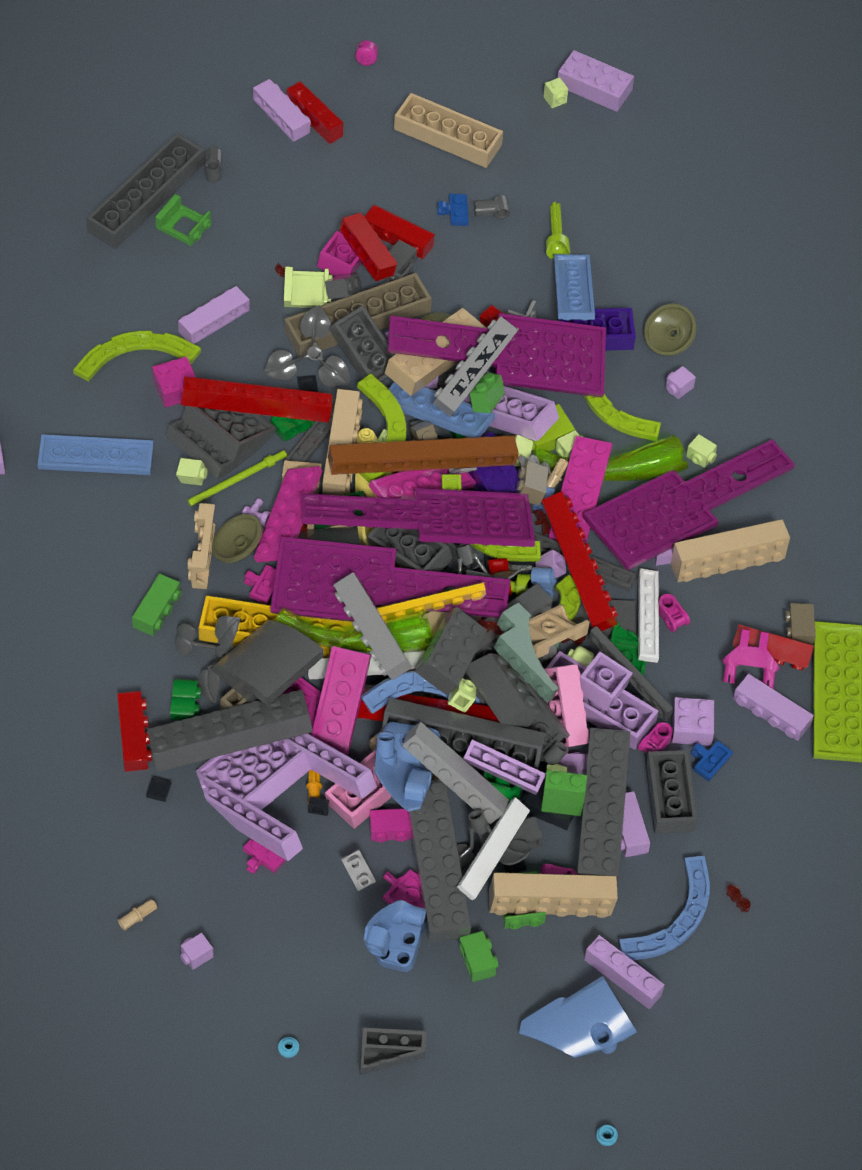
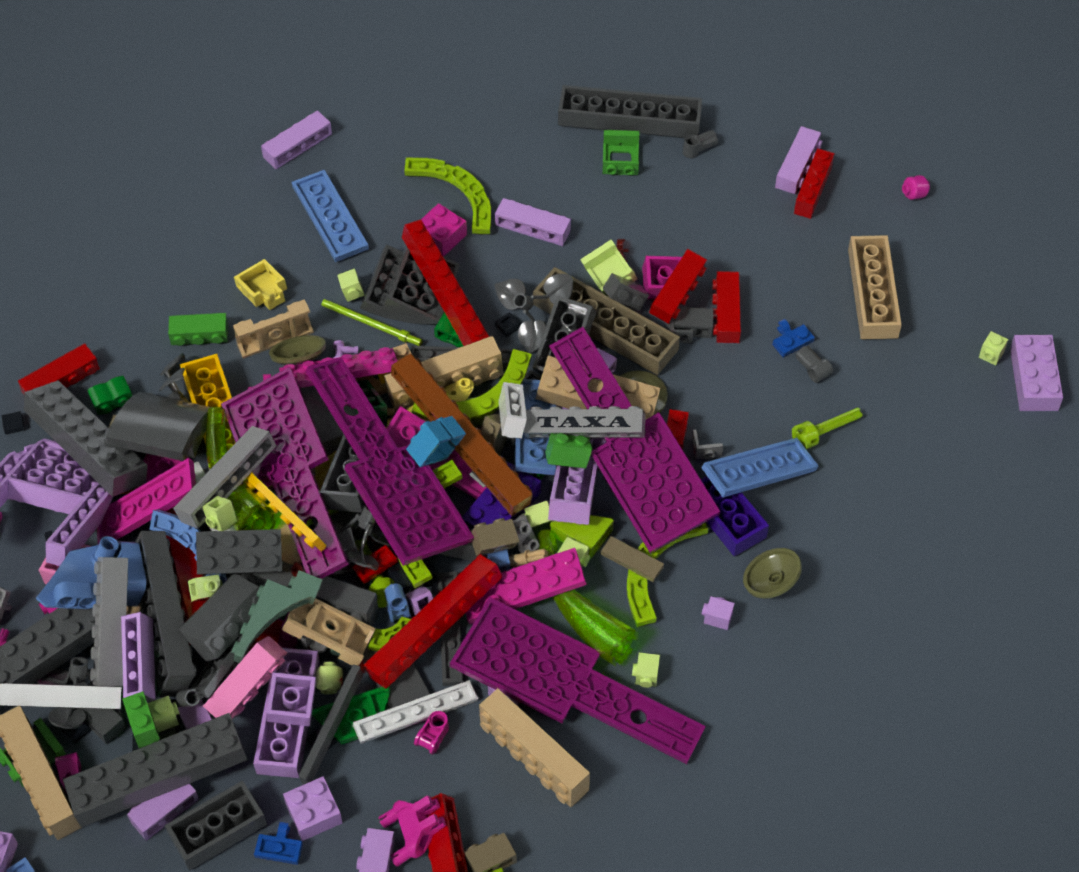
camera: 65 degrees right, 0 degrees up
(140, 537) = (262, 285): none -> light yellow piece
(410, 643) = (219, 513): none -> yellowish green brick
(428, 407) = (512, 410): none -> white brick
(430, 468) = (433, 441): none -> dark azure piece
(600, 410) = (632, 559): none -> dark tan tile
(654, 741) = (268, 786): dark pink piece -> none

